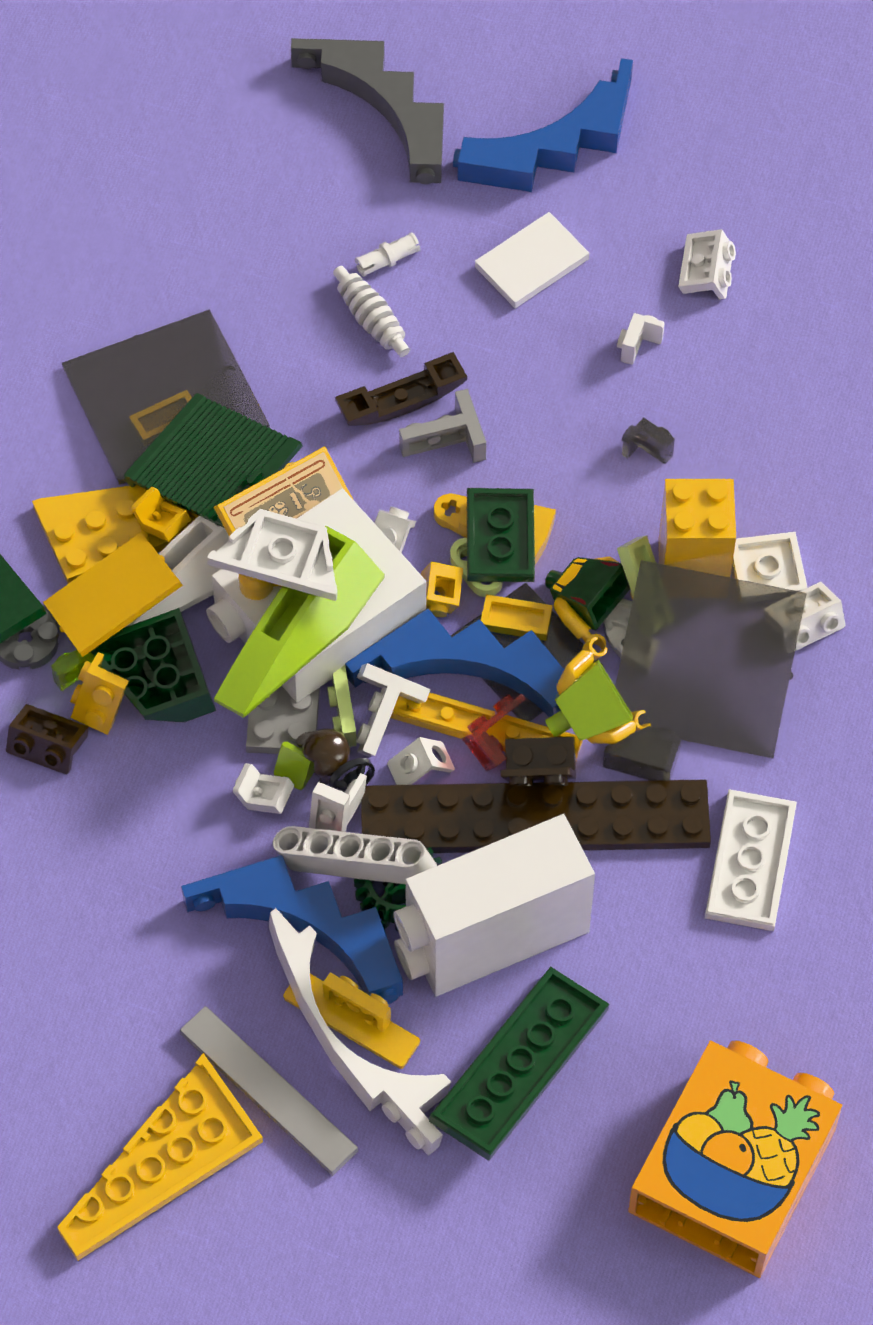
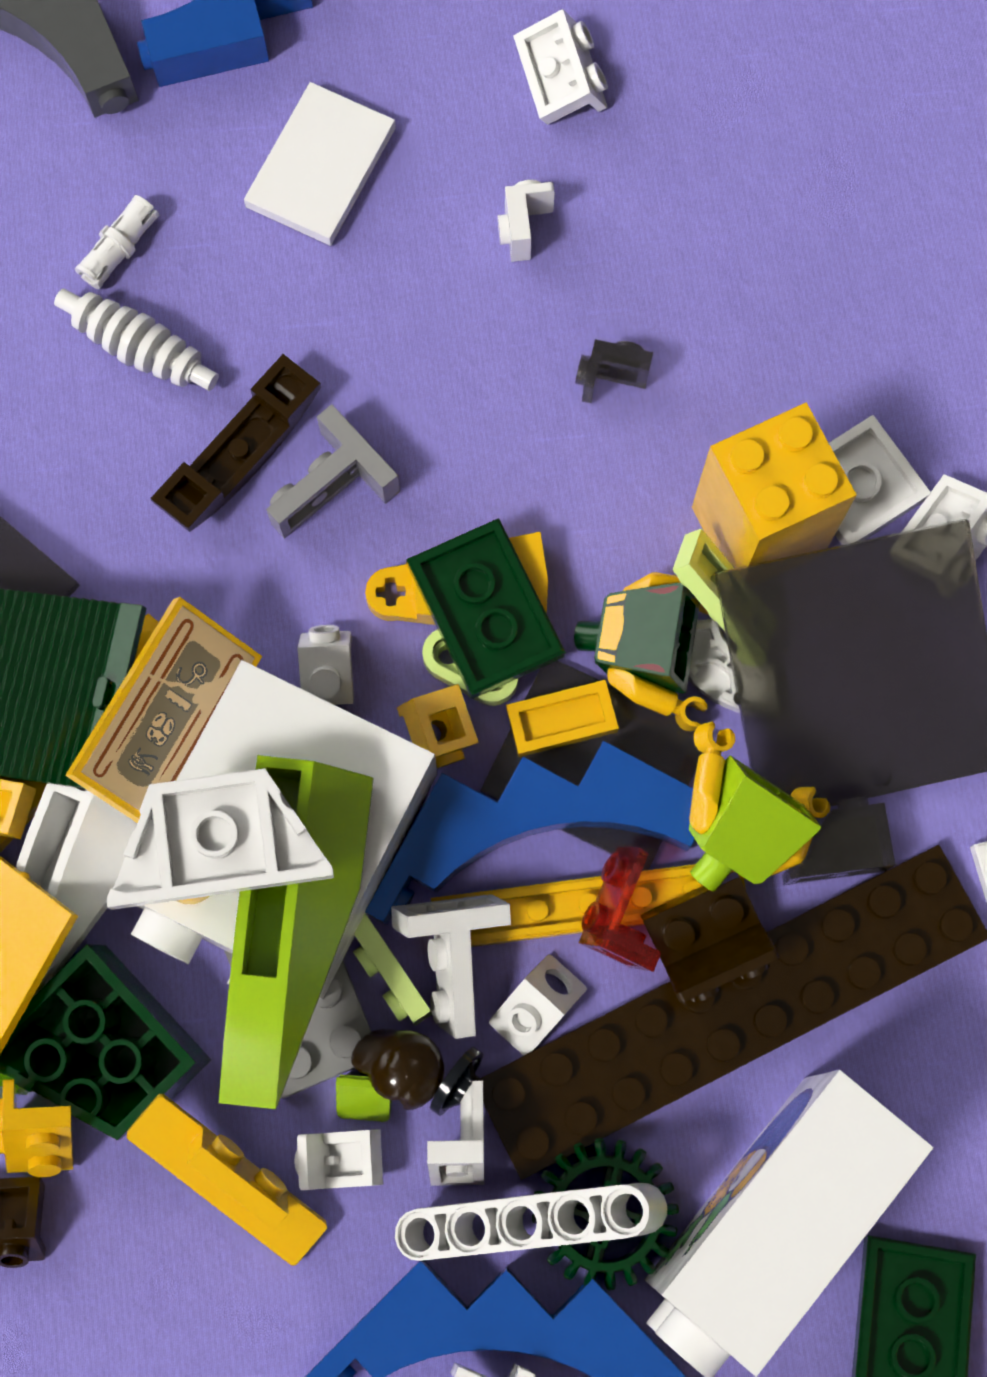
camera: 25 degrees left, 15 degrees up
(194, 769) = (227, 1179): none -> yellow bracket

